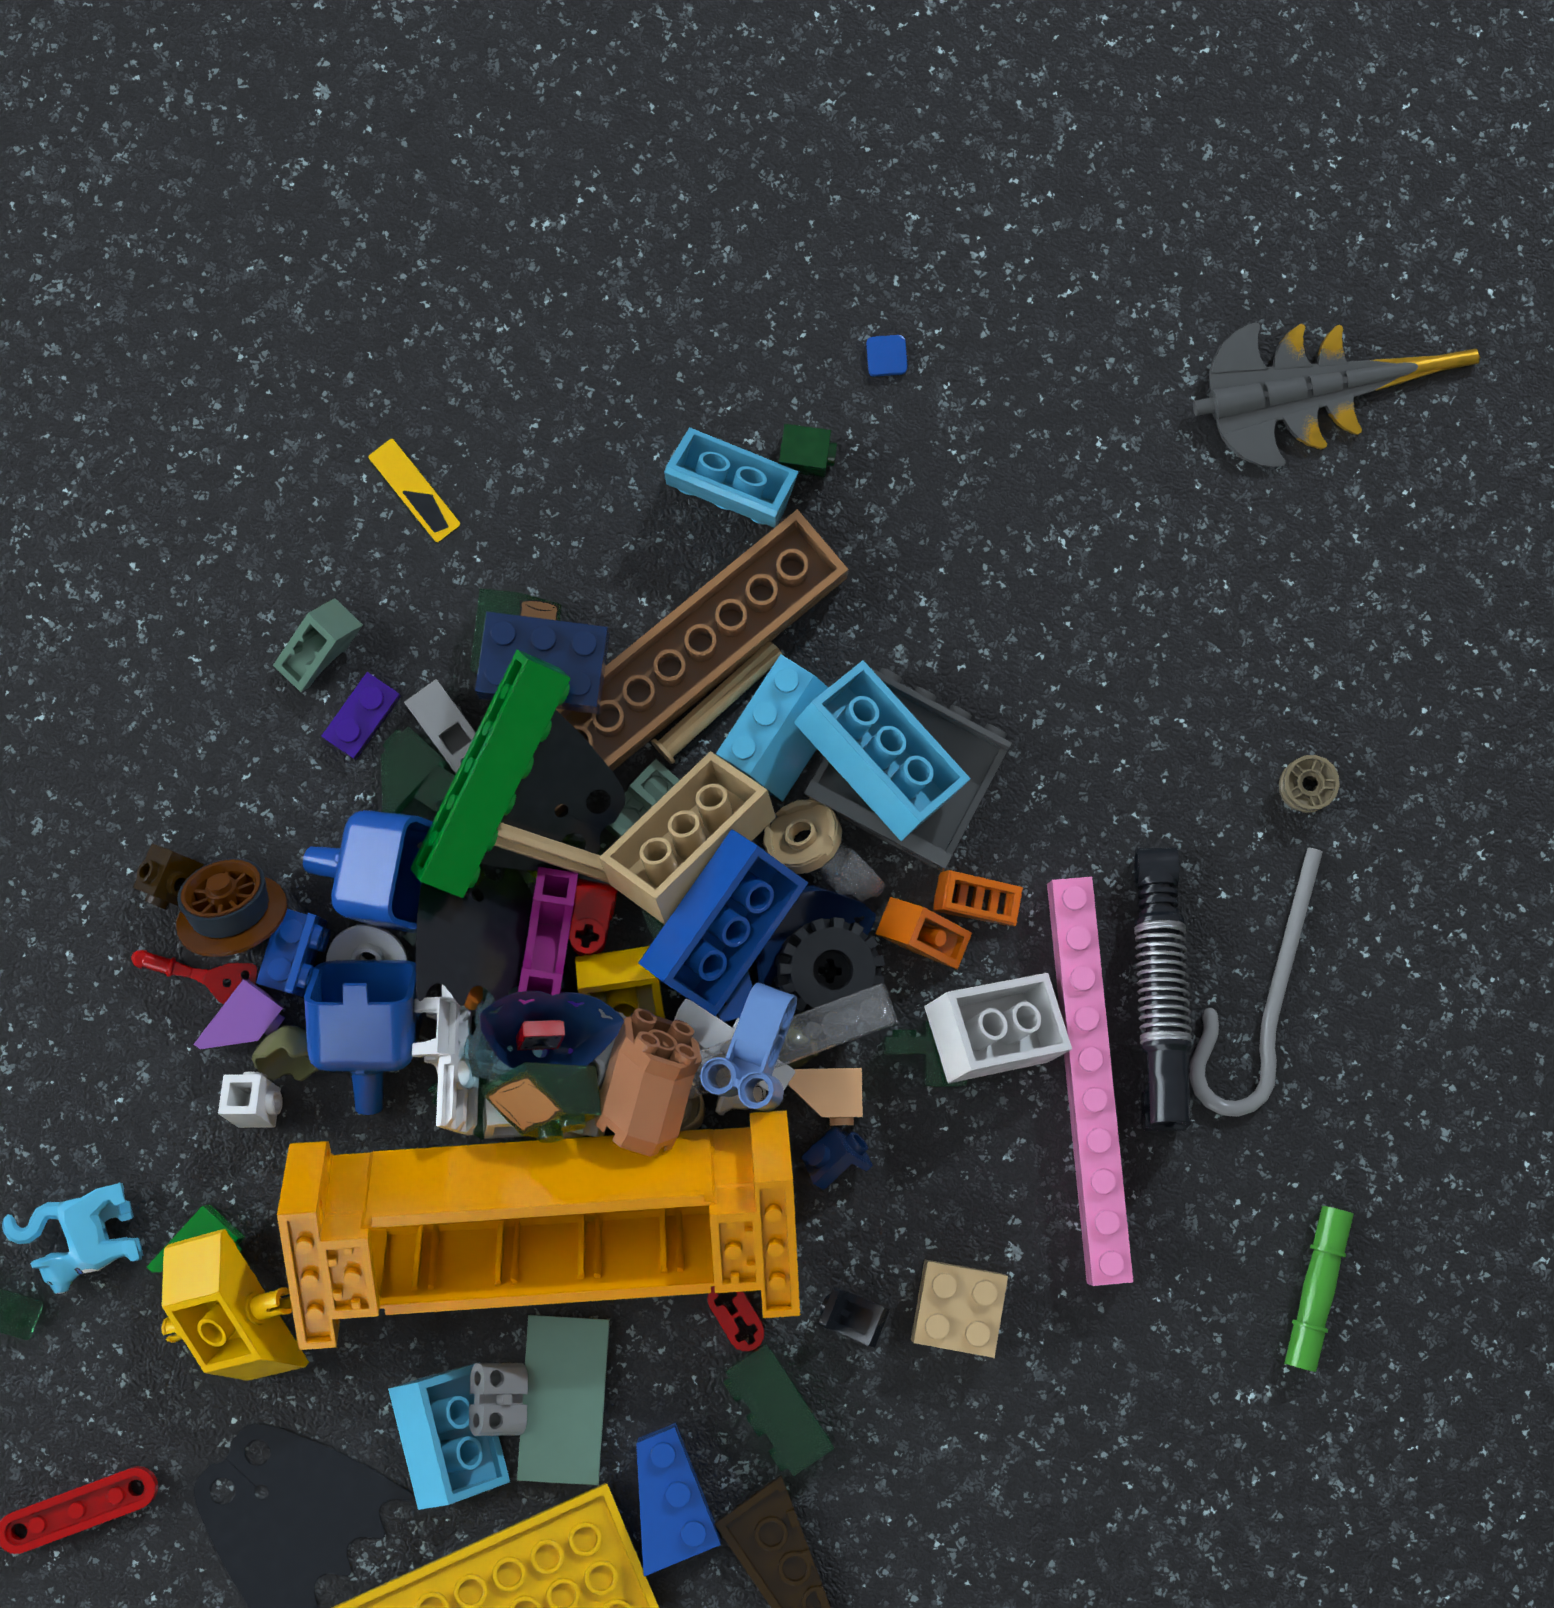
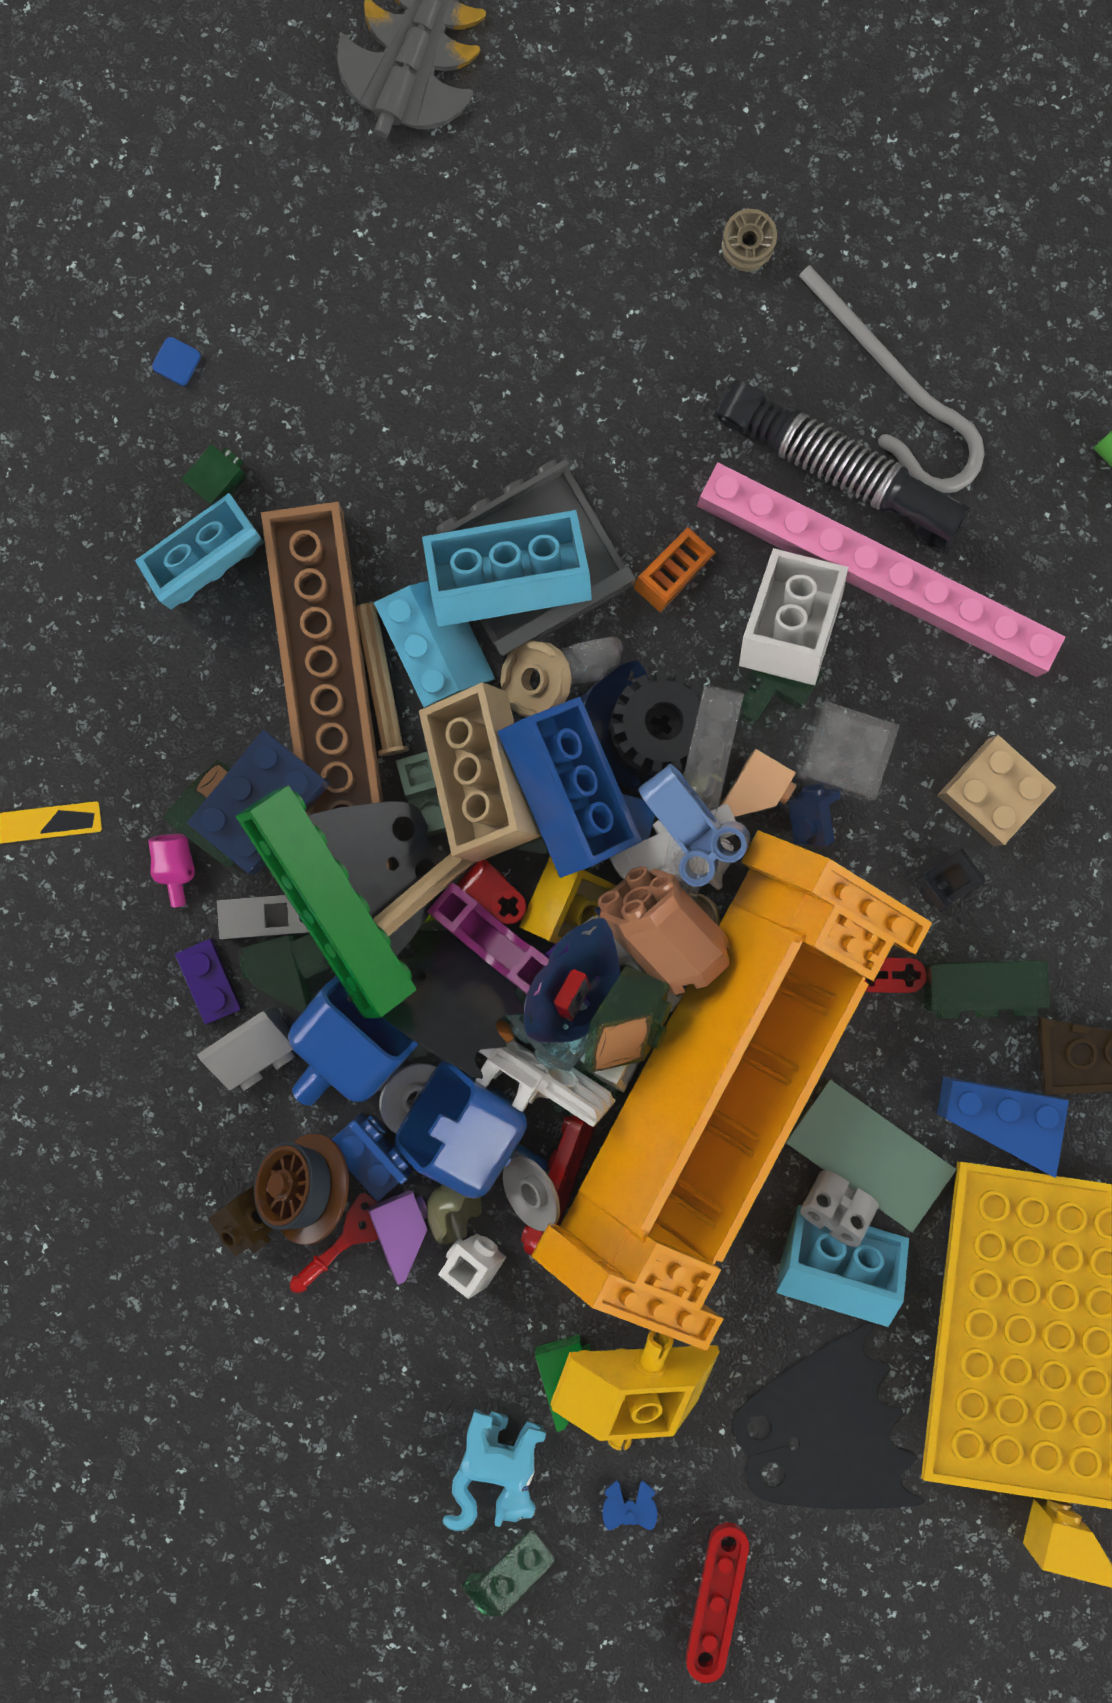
camera: 50 degrees left, 5 degrees up
(117, 1391) = (618, 1512): none -> blue piece
(316, 643) = (124, 981): sand green arch -> none
(322, 788) = (249, 1049): none -> light grey slope
(345, 1111) = (531, 1193): none -> light grey dish
(376, 1133) = (564, 1170): none -> red plate
(444, 621) = (171, 864): none -> dark pink piece
(911, 1152) = (847, 751): none -> clear brick
(923, 932) = (675, 630): orange slope -> none

